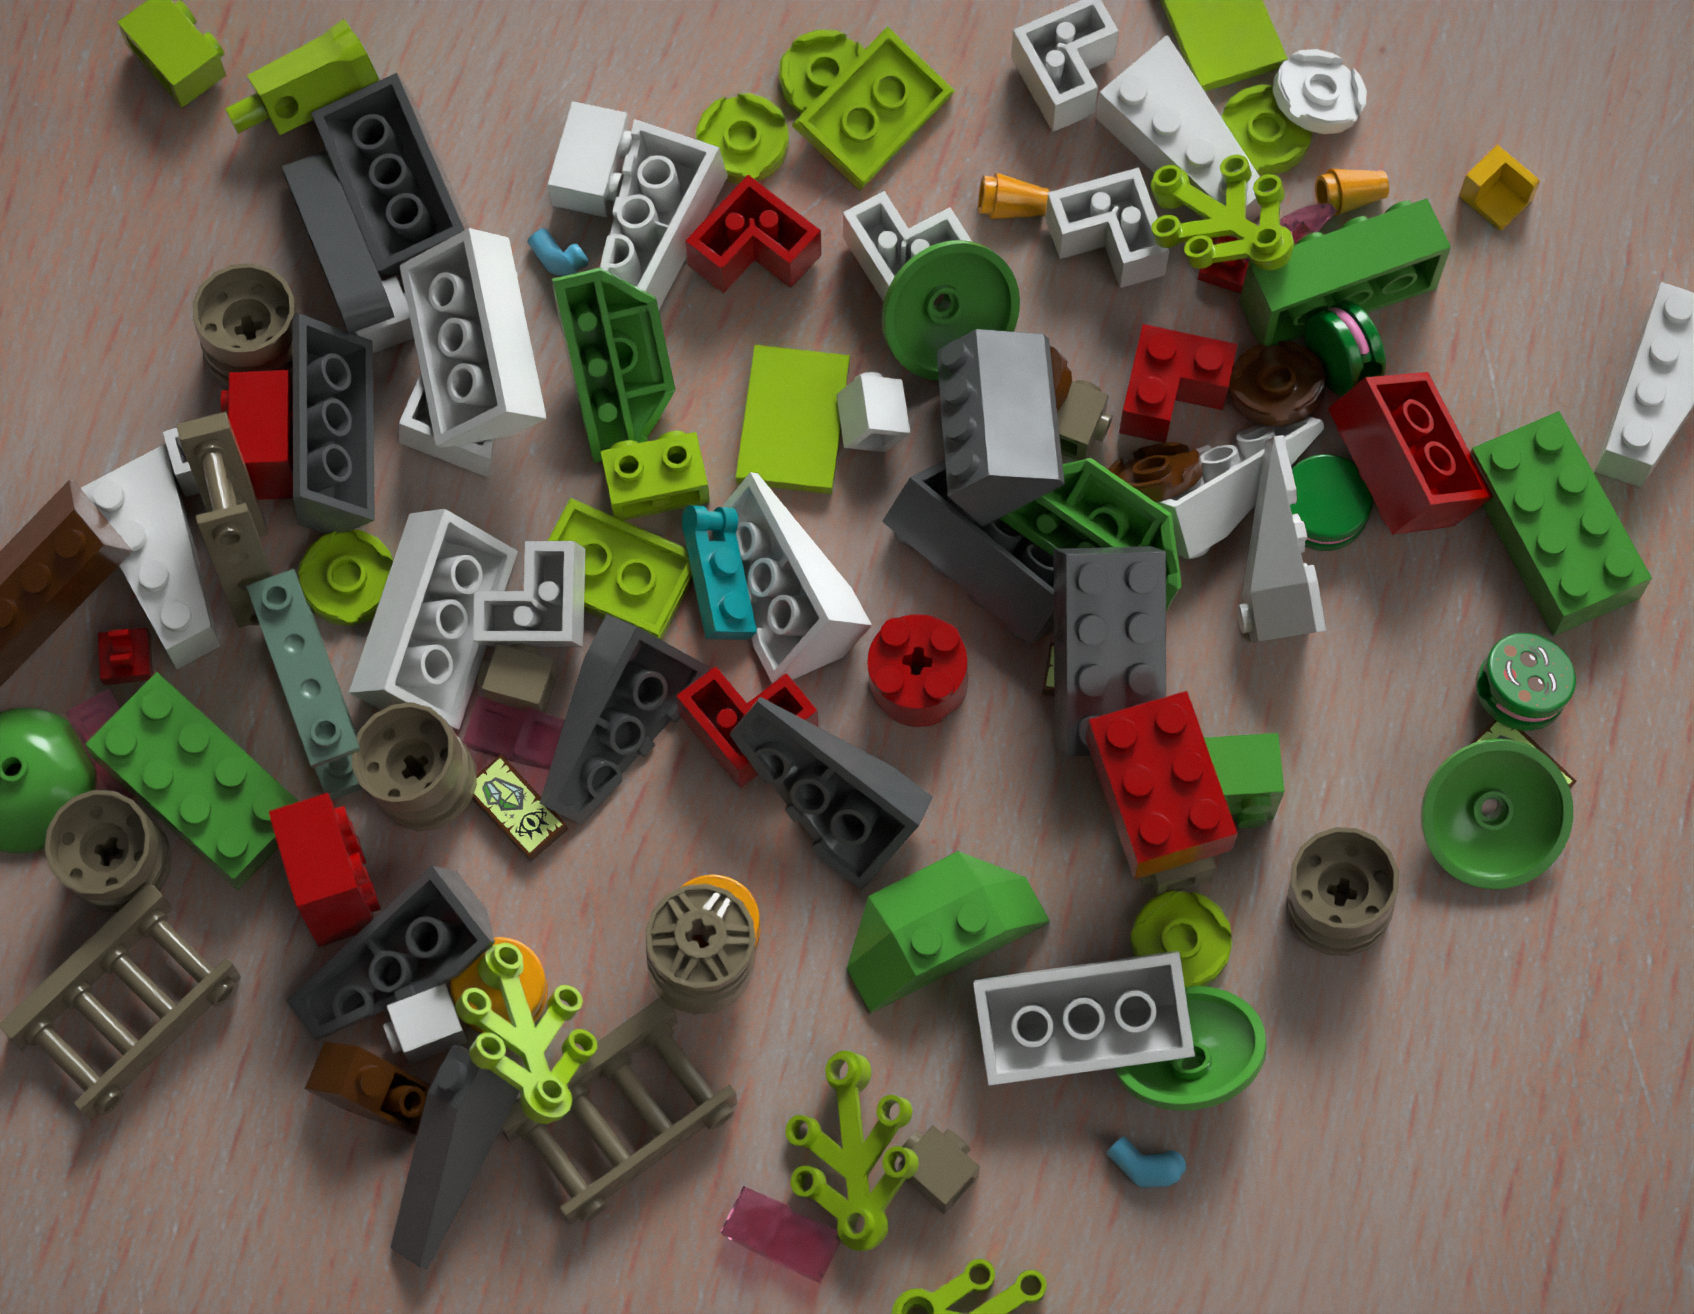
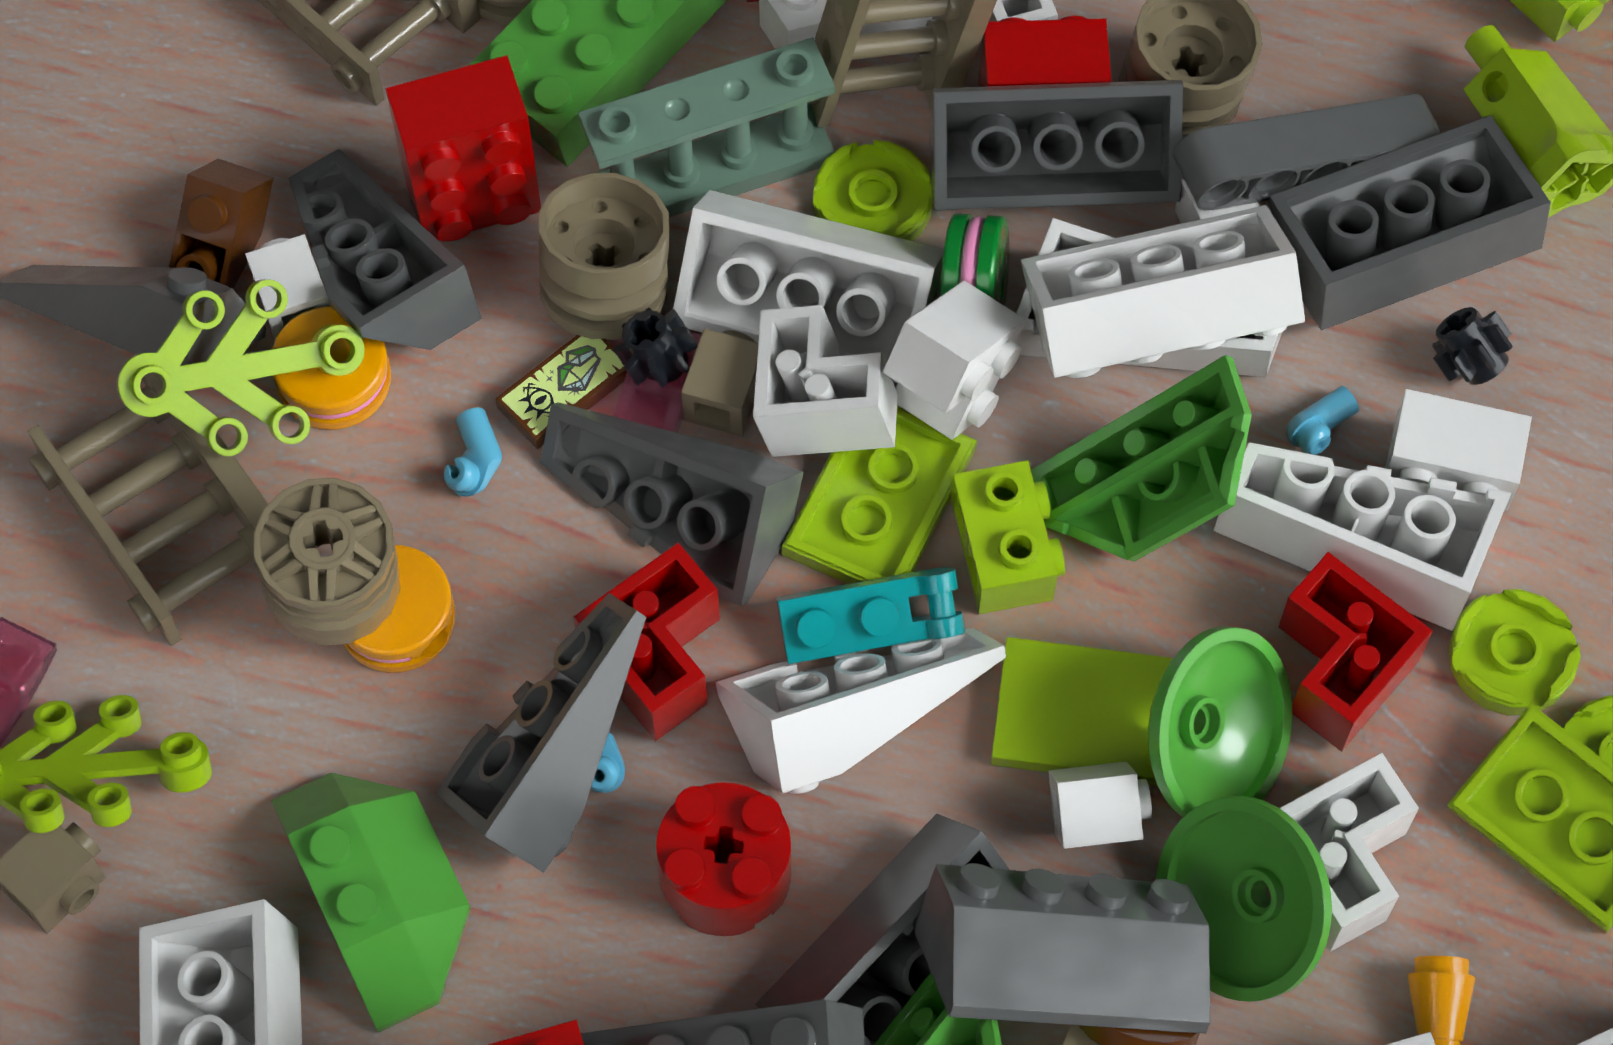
camera: 90 degrees right, 5 degrees down
(432, 485) = (977, 253): none -> green head
(500, 145) = (1472, 346): none -> black gear
(510, 722) = (655, 347): none -> black gear
(520, 493) = (953, 359): none -> white brick
(579, 869) = (480, 458): none -> medium azure arm
(817, 324) = (1220, 719): none -> bright green dish

